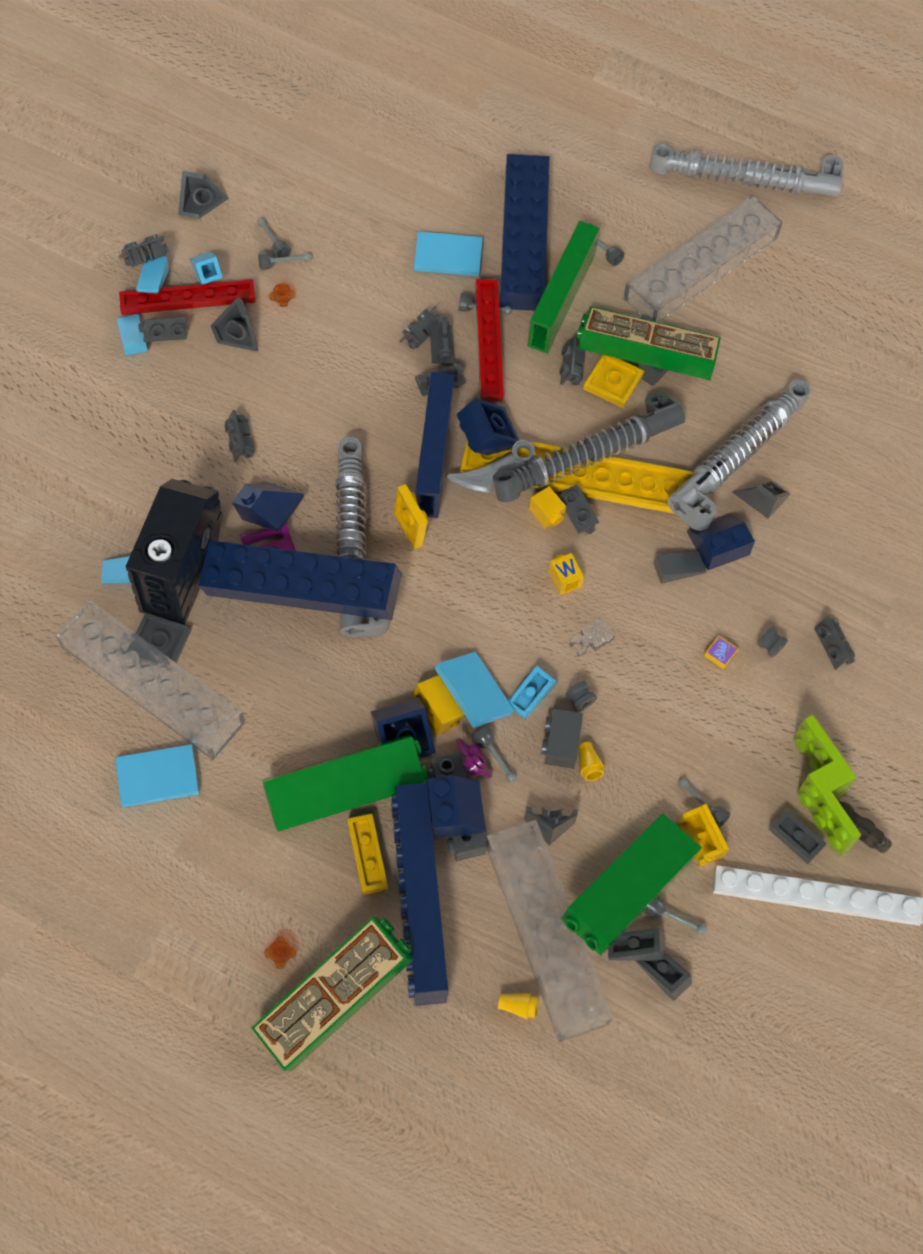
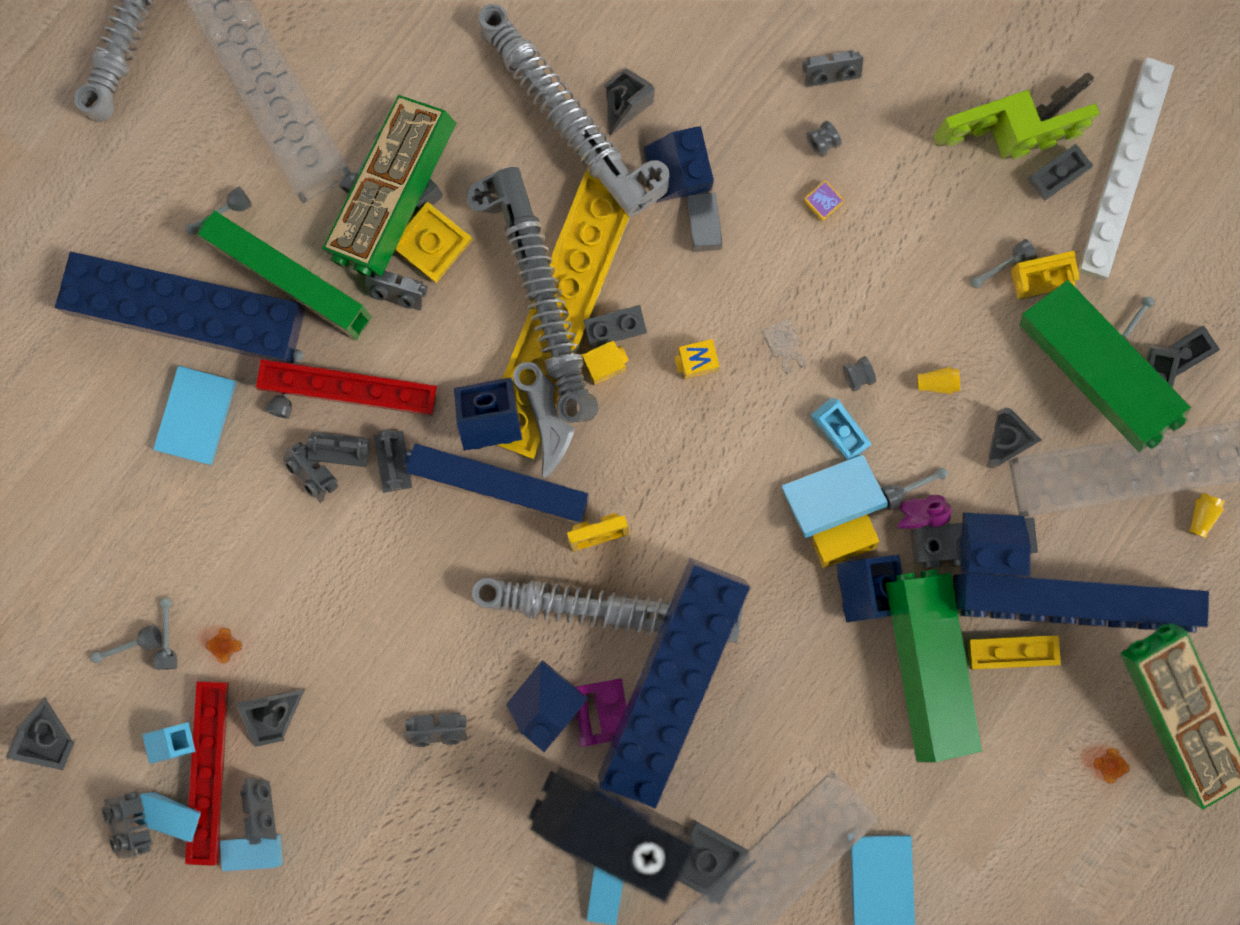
camera: 80 degrees left, 20 degrees up
(563, 738) = (908, 406): dark grey brick -> none

